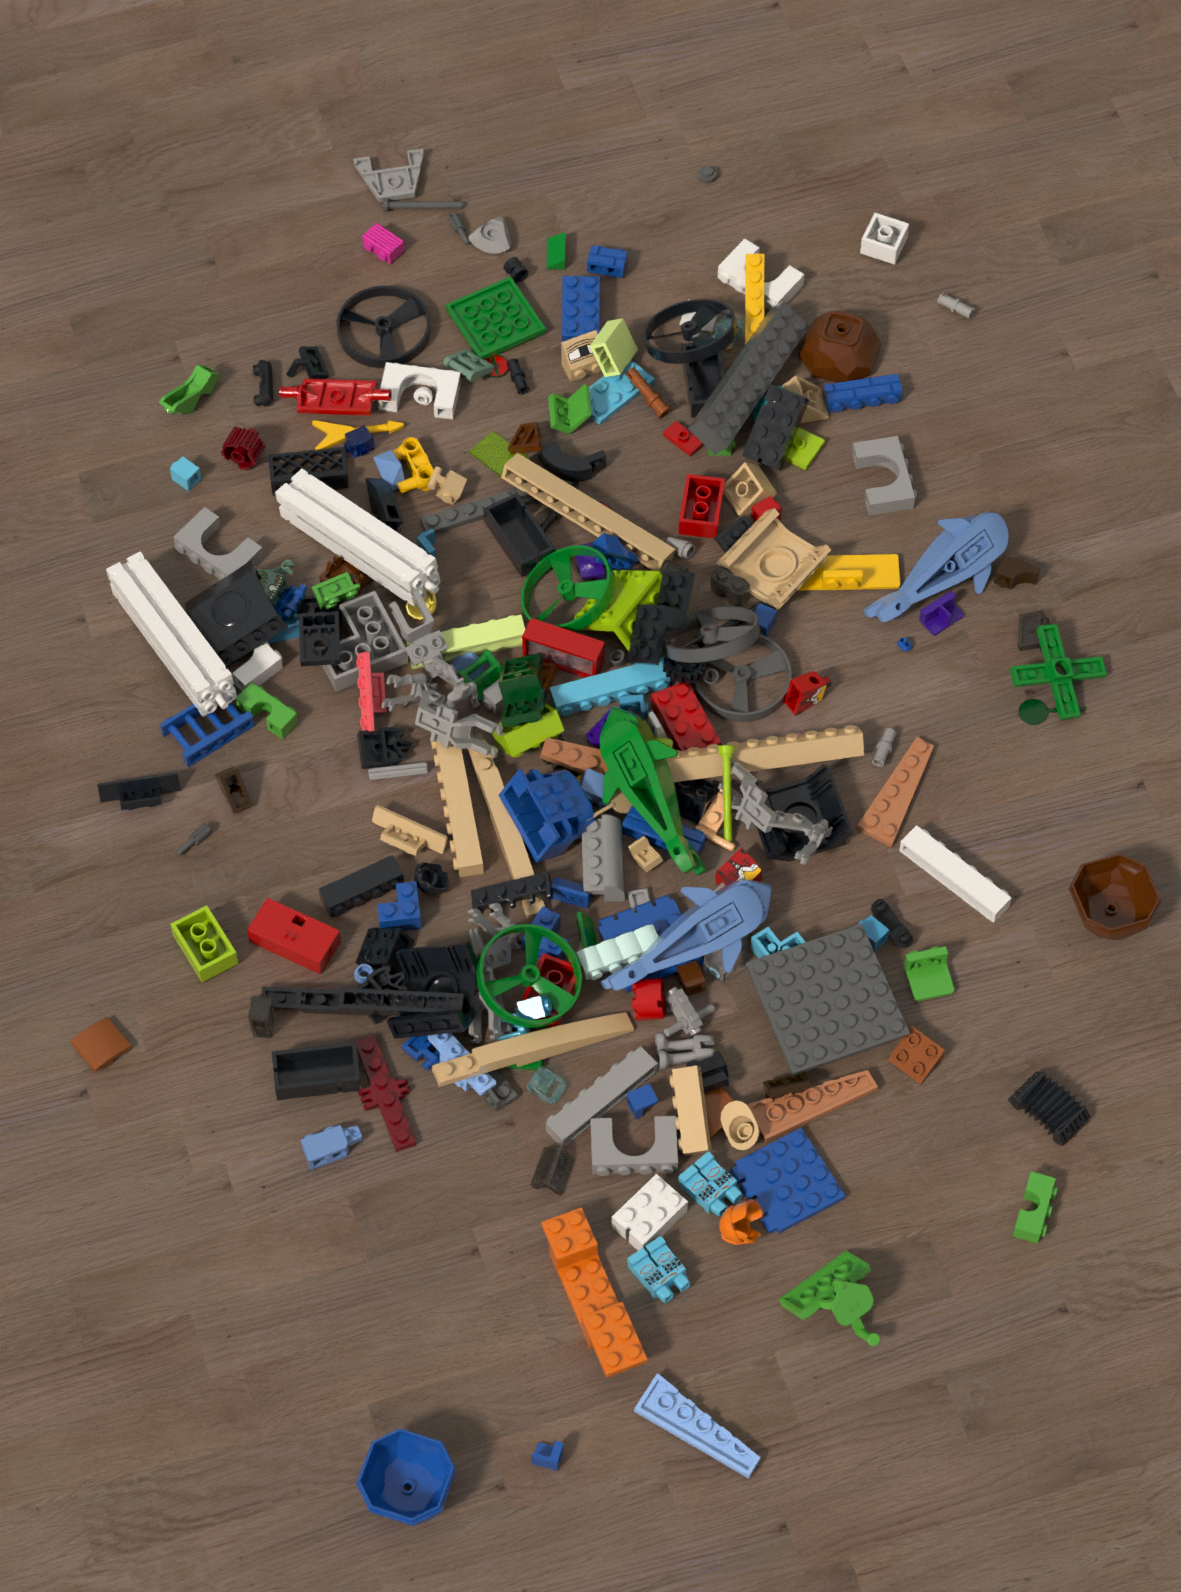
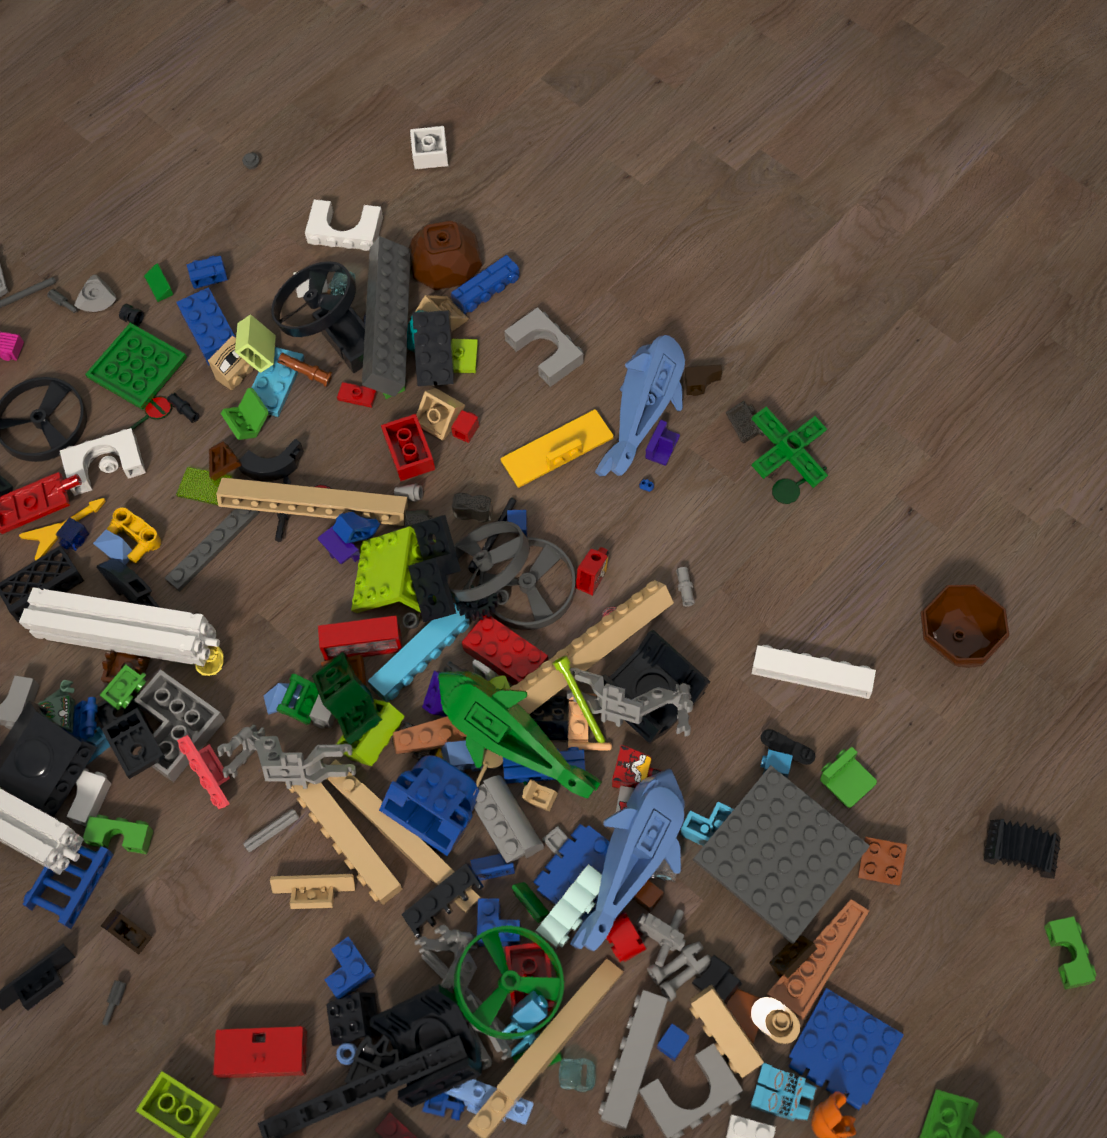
camera: 25 degrees left, 5 degrees up
(361, 886) = (298, 965): black brick -> none
(382, 747) = (244, 816): black plate -> none
(425, 542) = (182, 602): dark azure bracket -> none
(427, 648) = (237, 702): light grey piece -> none
(431, 878) = (359, 923): black hair -> none
(449, 486) = (176, 535): tan brick -> none
(468, 364) = (131, 415): sand green plate -> none
(476, 638) = (268, 673): yellowish green brick -> none
(501, 1094) = (541, 1108): dark grey bracket -> none
(519, 538) = (262, 552): black piece -> none
(560, 561) = (335, 581): green piece -> none
(635, 702) = (452, 655): dark azure bracket -> none
(731, 534) = (452, 459): black bracket -> none
(754, 293) = (349, 243): yellow plate -> none
(773, 560) = (497, 465): tan panel -> none
(891, 805) = (721, 635): nougat wing -> none
(956, 305) = (518, 177): light grey pin -> none

